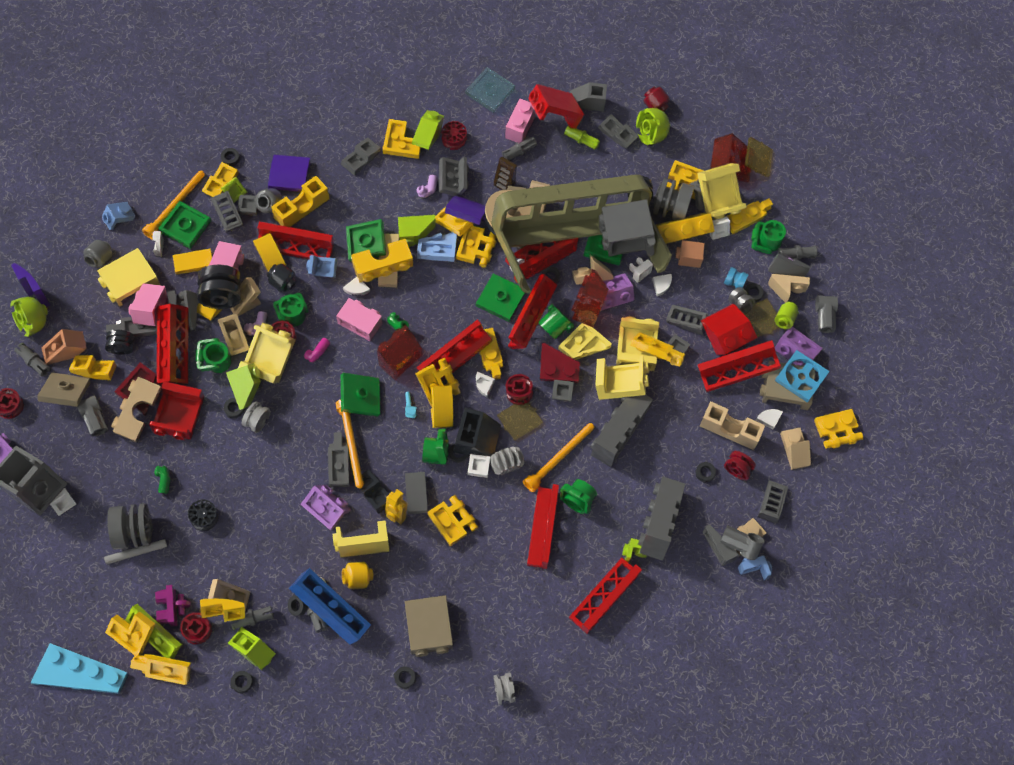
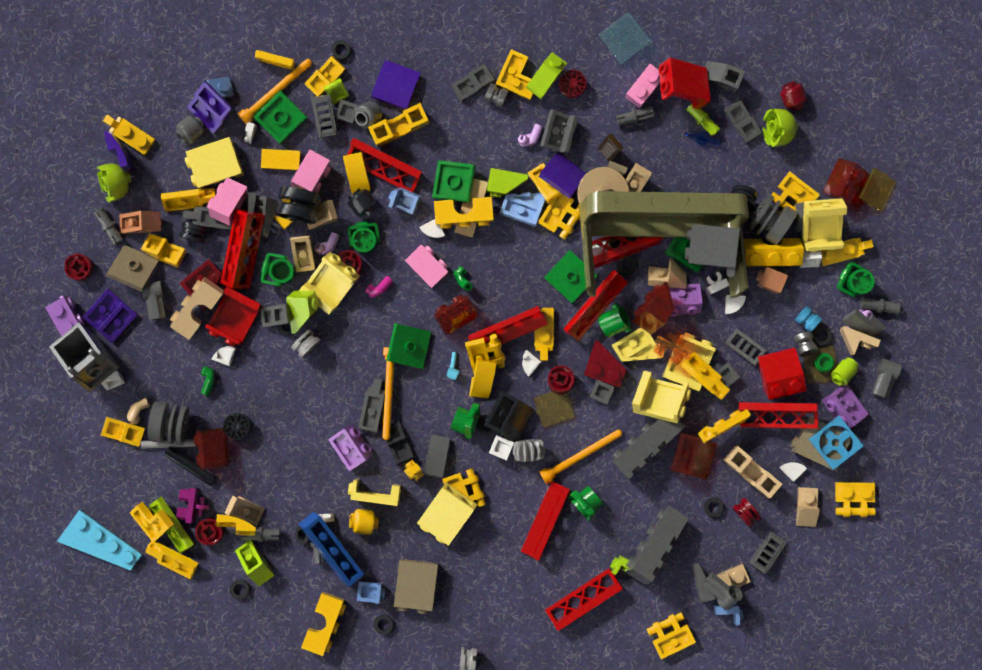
camera: 20 degrees right, 20 degrees up
(42, 273) = (130, 134): none -> yellow hinge
(49, 441) = (109, 315): none -> dark purple slope
(82, 552) = (122, 431): none -> yellow slope
(92, 525) = (133, 413): none -> tan arm
(105, 315) = (187, 199): none -> yellow hinge
(114, 227) = (210, 107): none -> dark purple slope
(161, 568) = (189, 465): none -> black axle
(168, 176) = (274, 60): none -> yellow tile
(175, 450) = (224, 355): none -> white tile
(181, 539) = (212, 448): none -> clear red slope
(219, 397) = (275, 315): none -> dark grey slope
(340, 711) = (319, 640): none -> yellow arch
(382, 645) = (370, 592): none -> medium blue bracket
(386, 159) = (496, 95): none -> flat silver wheel
(440, 544) = (447, 514): none -> light yellow panel
(587, 153) = (703, 138): none -> clear blue piece
(616, 329) = (678, 352): none -> clear orange hips
(669, 426) = (693, 456): none -> clear red slope
(691, 387) = (723, 426): none -> yellow hinge
(709, 612) = (672, 641): none -> yellow plate
(764, 313) = (824, 362): none -> green plate

